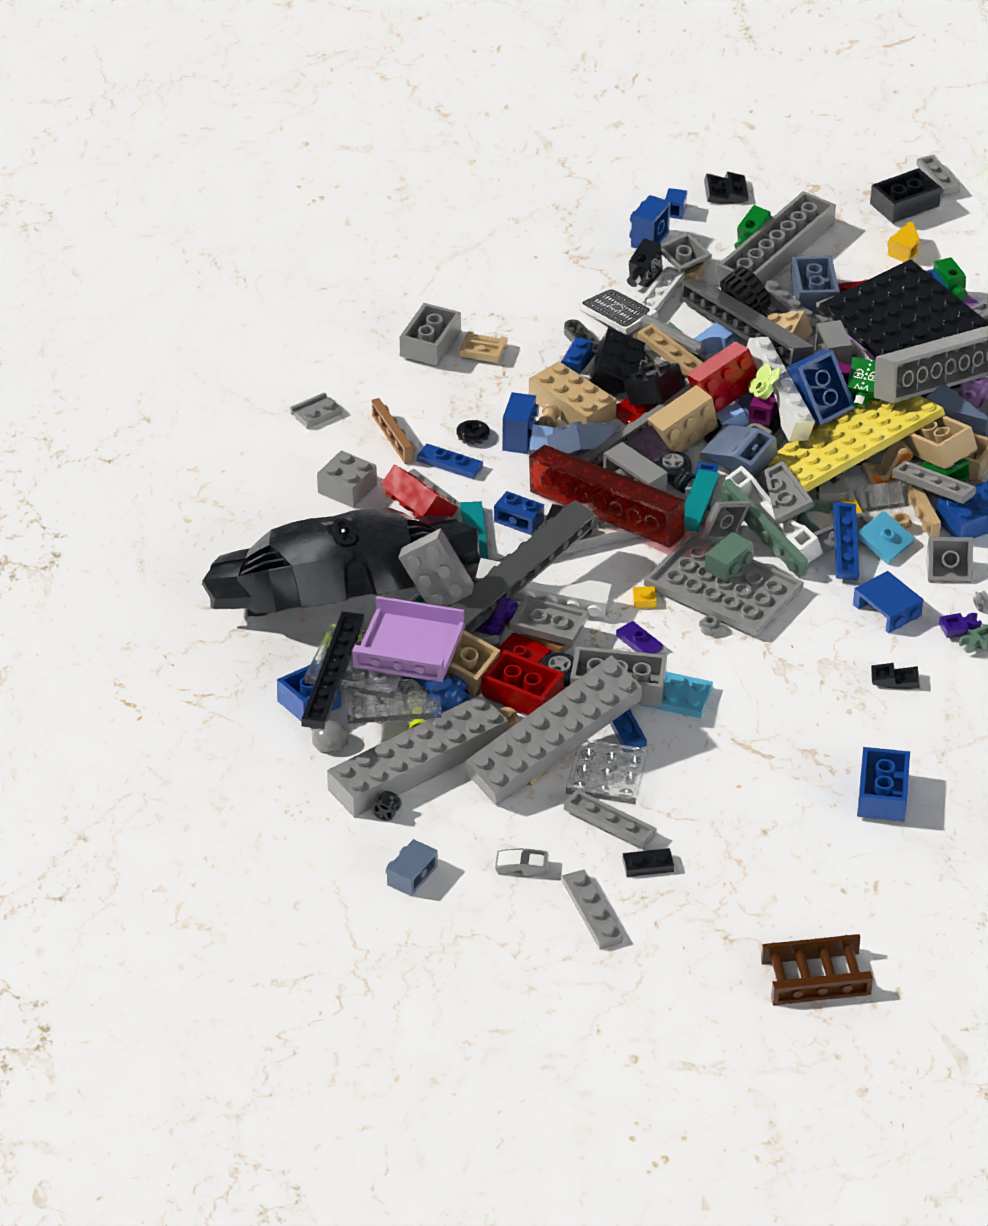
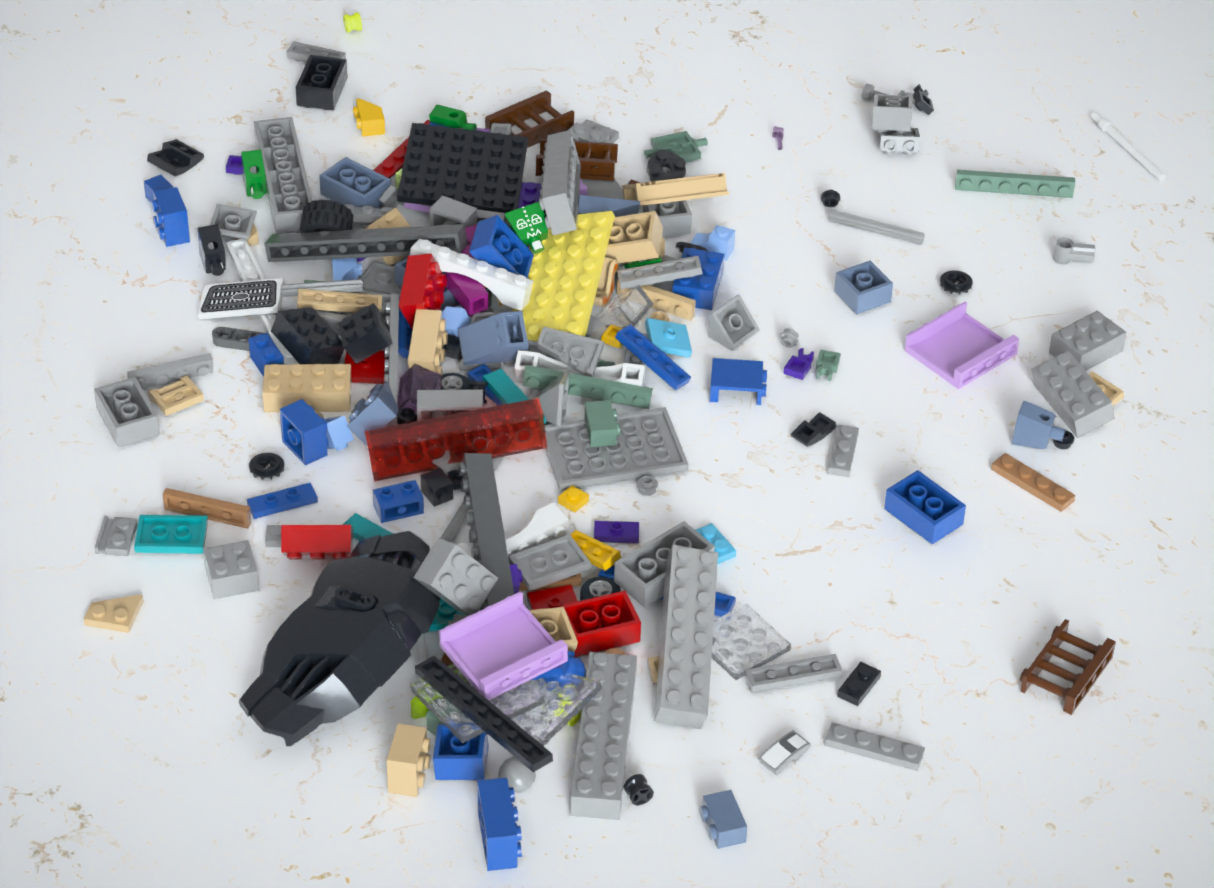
camera: 50 degrees left, 0 degrees up
(245, 457) = (114, 613): none -> tan wing
(259, 751) = (498, 824): none -> blue brick
(263, 667) = (408, 760): none -> tan brick
(347, 431) = (171, 534): none -> teal plate
(498, 327) = (173, 370): none -> light grey plate
(594, 632) = (596, 551): none -> yellow plate
(762, 385) = (460, 273): yellowish green plate -> none
(896, 706) = (843, 450): none -> light grey plate

